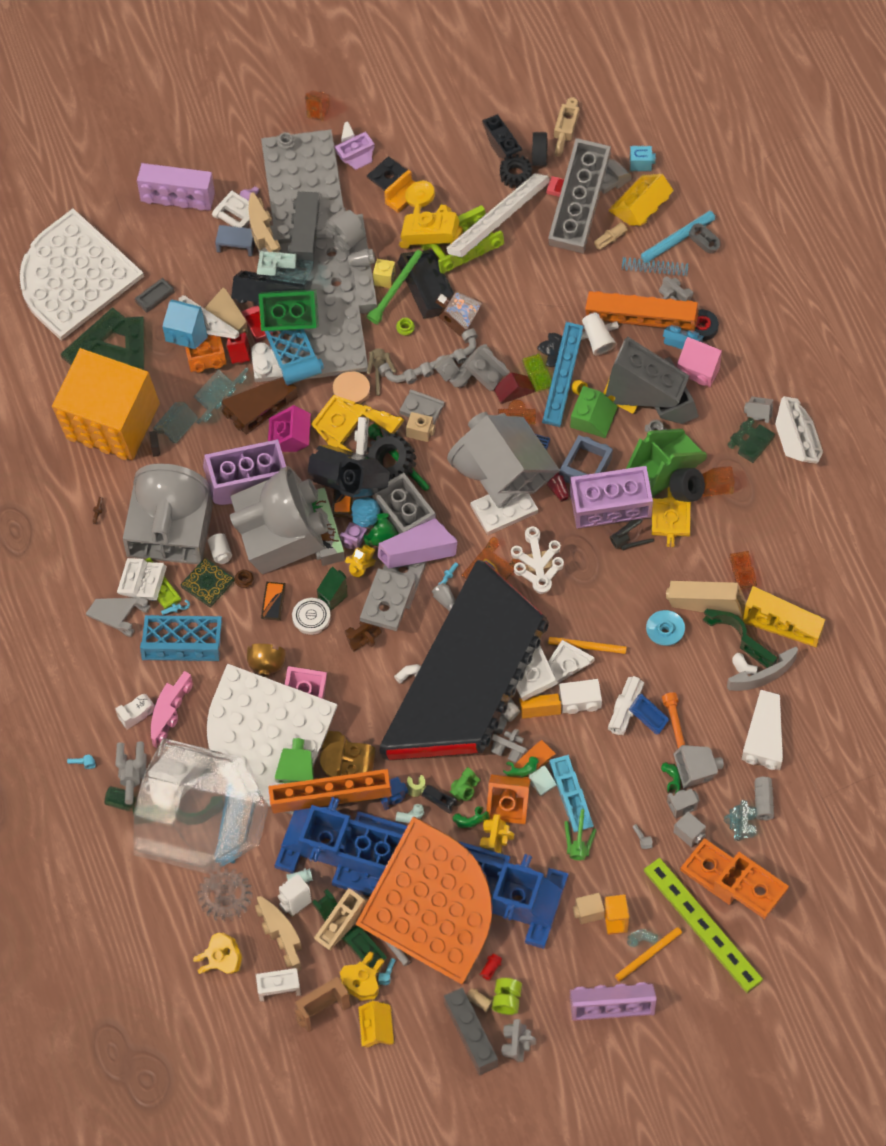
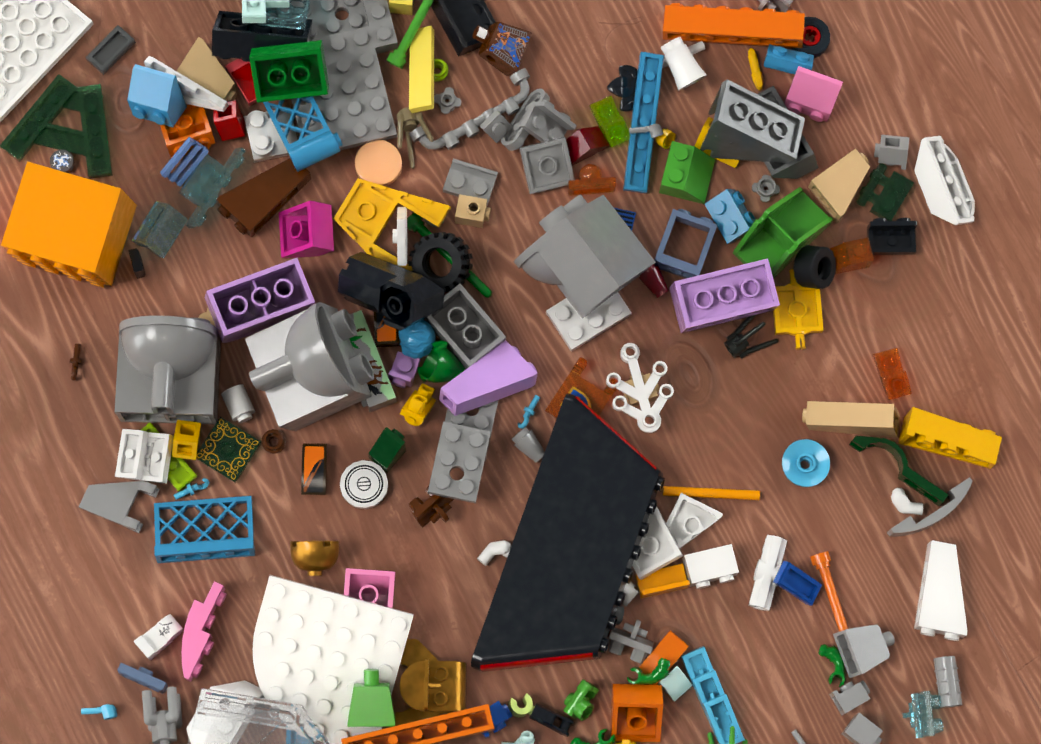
camera: 15 degrees left, 15 degrees up
(115, 736) = (143, 677): none -> sand blue plate
(175, 570) = (186, 439): none -> yellow brick
(199, 385) = (188, 162): none -> medium blue tile
(393, 324) = (421, 71): none -> light yellow tile
(411, 353) = (446, 107): none -> light grey plate
(483, 397) = (547, 165): none -> light grey tile
(570, 377) = (654, 129): none -> light grey hand
(623, 443) = (730, 214): none -> dark azure bracket
(656, 343) = (757, 76): none -> yellow piece
(715, 429) = (839, 183): none -> tan slope
(752, 470) = (892, 236): none -> black bracket

